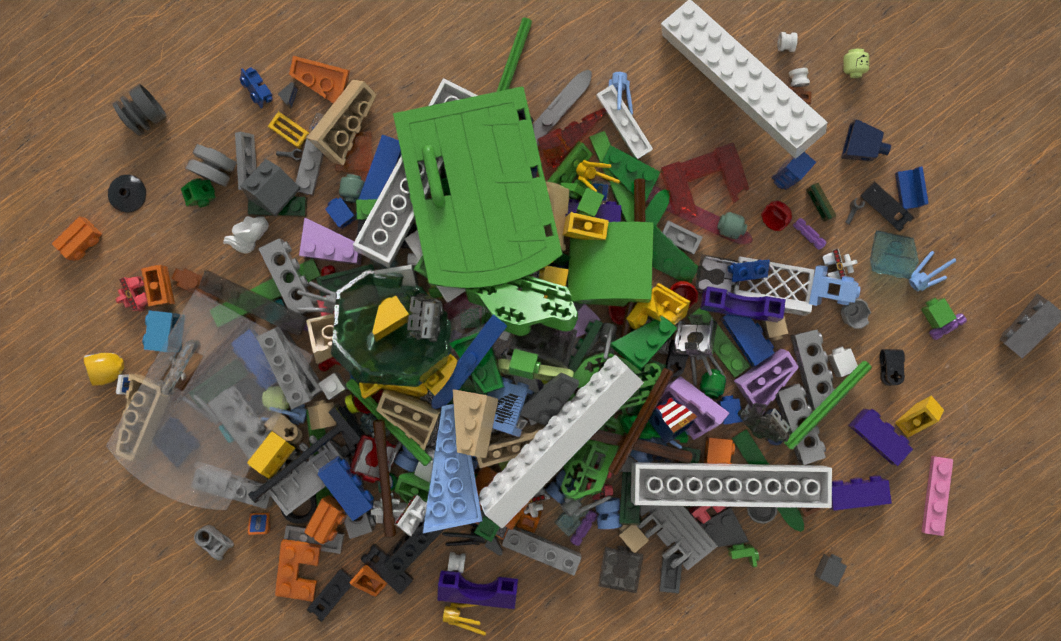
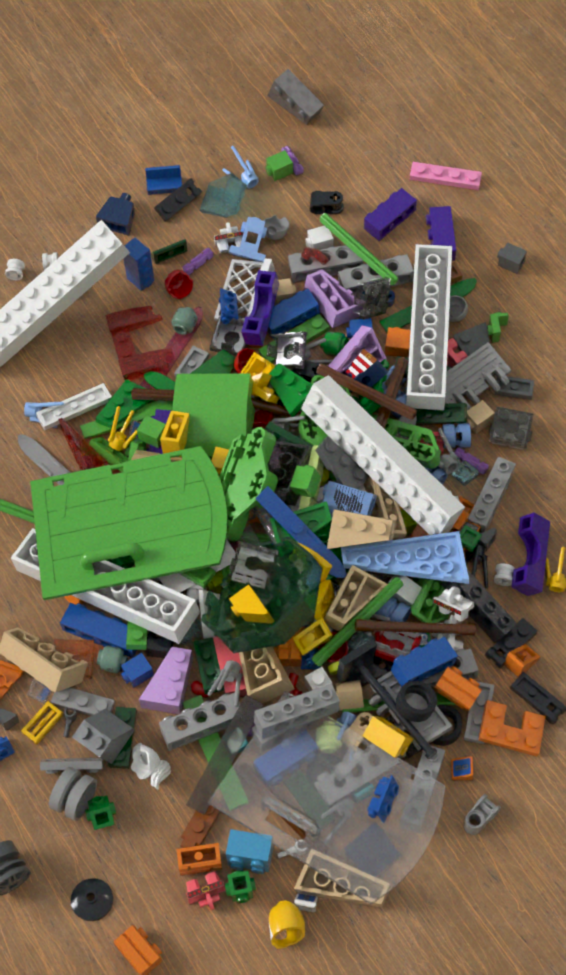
camera: 85 degrees left, 25 degrees down
(133, 325) = (240, 879): none -> green brick
(195, 452) = (382, 806): none -> blue hinge
(304, 496) = (421, 689): none -> black tyre
(819, 358) = (316, 253): none -> clear red arm
(854, 208) = (175, 225): dark grey hand -> none
(856, 63) = (42, 216): yellowish green head -> none
(920, 416) = (373, 183): yellow slope -> none

